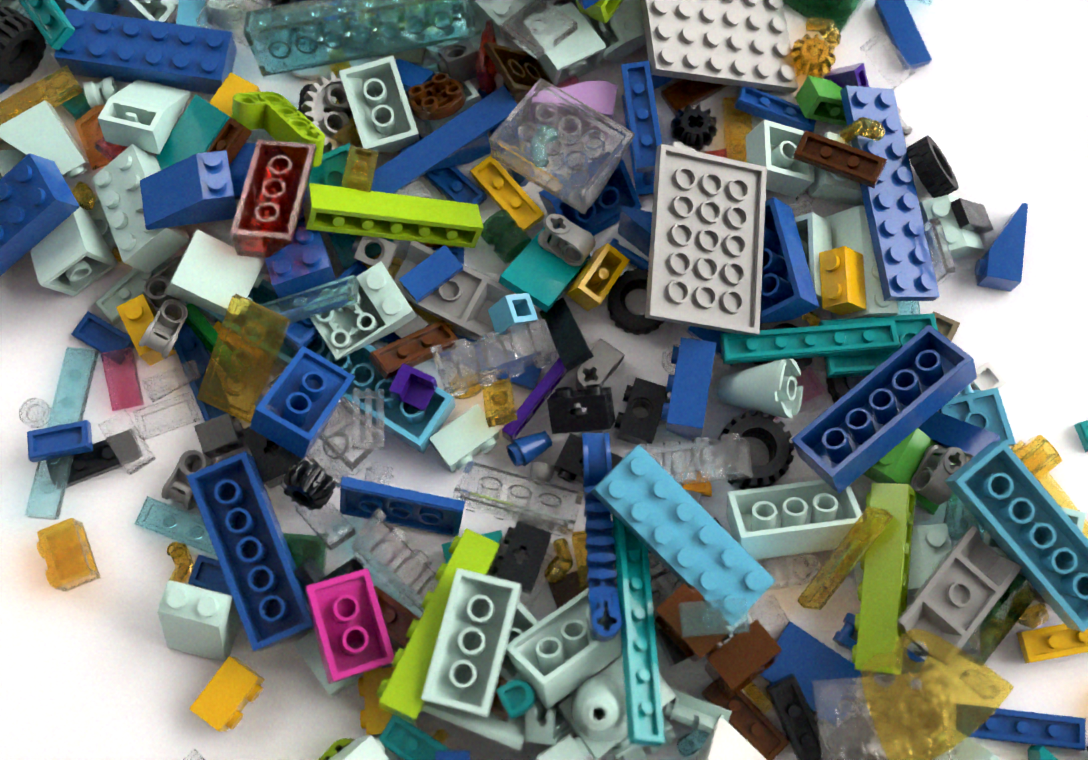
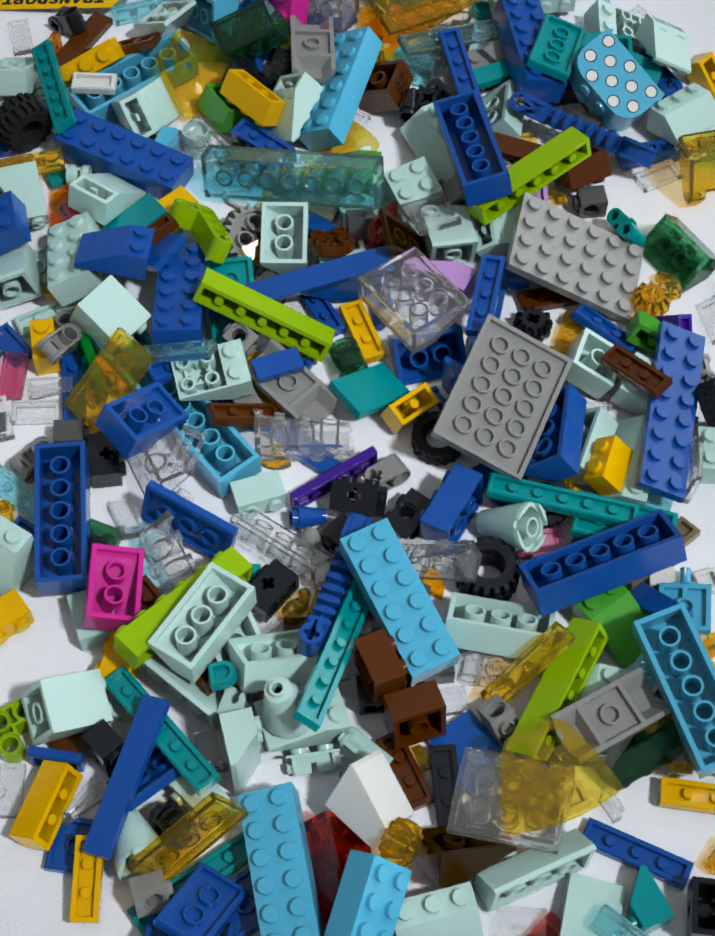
camera: 20 degrees right, 15 degrees down
(84, 195) = (37, 242): clear yellow tile -> none
(271, 197) = (173, 268): clear red slope -> none
(308, 485) = (122, 485): black gear -> none
(360, 169) = (251, 273): clear yellow plate -> none
(413, 387) = (230, 437): dark purple panel -> none
(499, 403) = (295, 474): clear yellow plate -> none
(512, 311) = (330, 407): medium azure brick -> none
(539, 142) = (392, 290): clear light blue arm -> none
(566, 335) = (367, 440): black tile -> none
(567, 241) = (395, 375): light grey piece -> none
(714, 617) = (396, 655): clear light blue plate -> none
(820, 616) = (497, 717): none -> light grey brick
(864, 127) = (663, 352): clear yellow arm -> none
(935, 470) = (622, 633): light grey piece -> none

